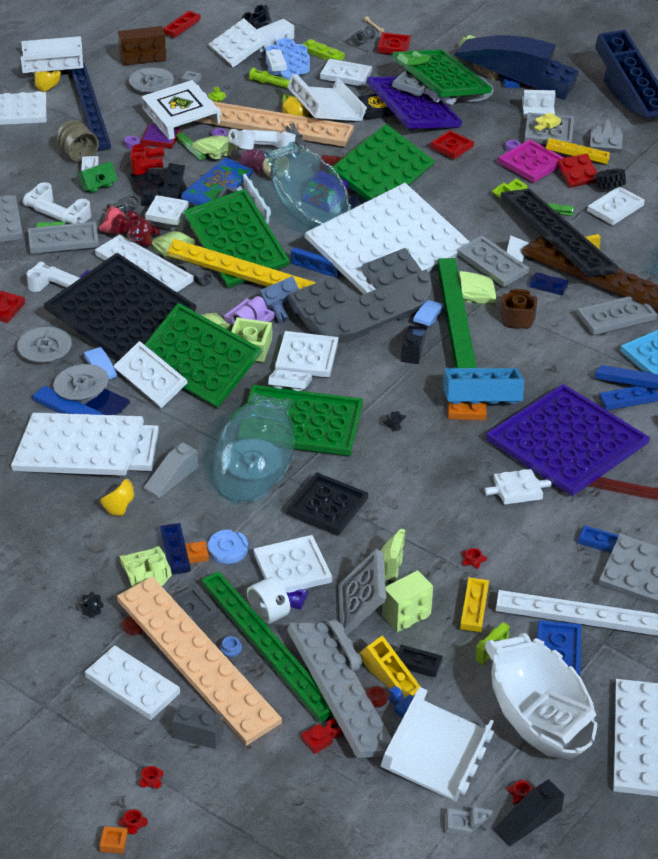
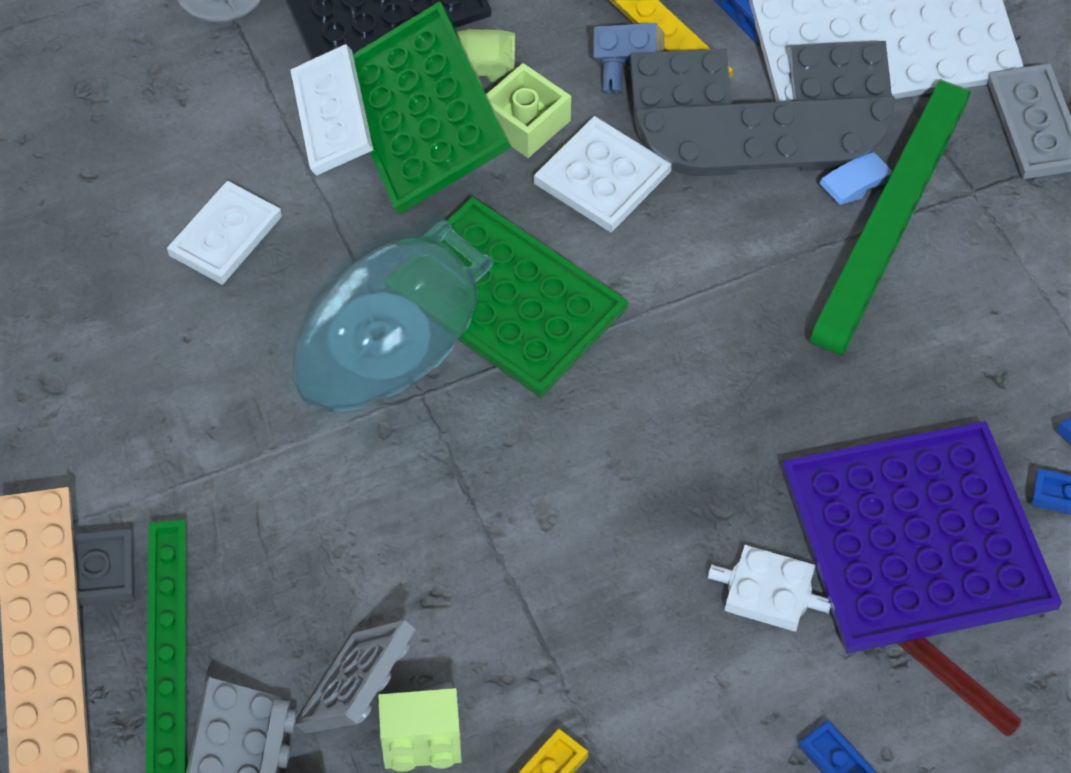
camera: 30 degrees right, 15 degrees up
(50, 399) = (182, 113): blue tile -> none
(78, 444) = (145, 189): white plate -> none
(81, 382) = (223, 78): light grey piece -> none
(99, 358) = (277, 57): light blue slope -> none
(108, 403) = (244, 132): clear blue piece -> none
(118, 500) = (129, 318): yellow hair -> none
(146, 564) = (86, 460): yellowish green slope -> none
(172, 470) = (249, 299): light grey slope -> none
(175, 548) = (154, 446): clear blue plate -> none
(197, 552) = (185, 466): orange plate -> none
(227, 547) = (237, 478): light blue tile -> none
(230, 646) = (112, 667): medium blue plate -> none
(250, 309) = (564, 60): lavender plate -> none
(273, 607) = (211, 616): white piece -> none
(287, 378) = (537, 211): white plate -> none
(294, 563) = (303, 564): white plate -> none
(297, 598) = (271, 623): dark purple tile -> none
(327, 503) = (438, 473): black plate -> none
(393, 555) = (459, 624): yellowish green slope -> none
(394, 419) = (653, 363): black plant -> none
(413, 344) = (789, 226): black slope -> none
(467, 411) = (791, 397): orange plate -> none
(473, 557) = (606, 680): red plate -> none
(477, 288) = (971, 162): yellowish green slope -> none
(483, 385) = (837, 365): dark azure brick -> none
(518, 309) = (1010, 237): reddish brown brick -> none

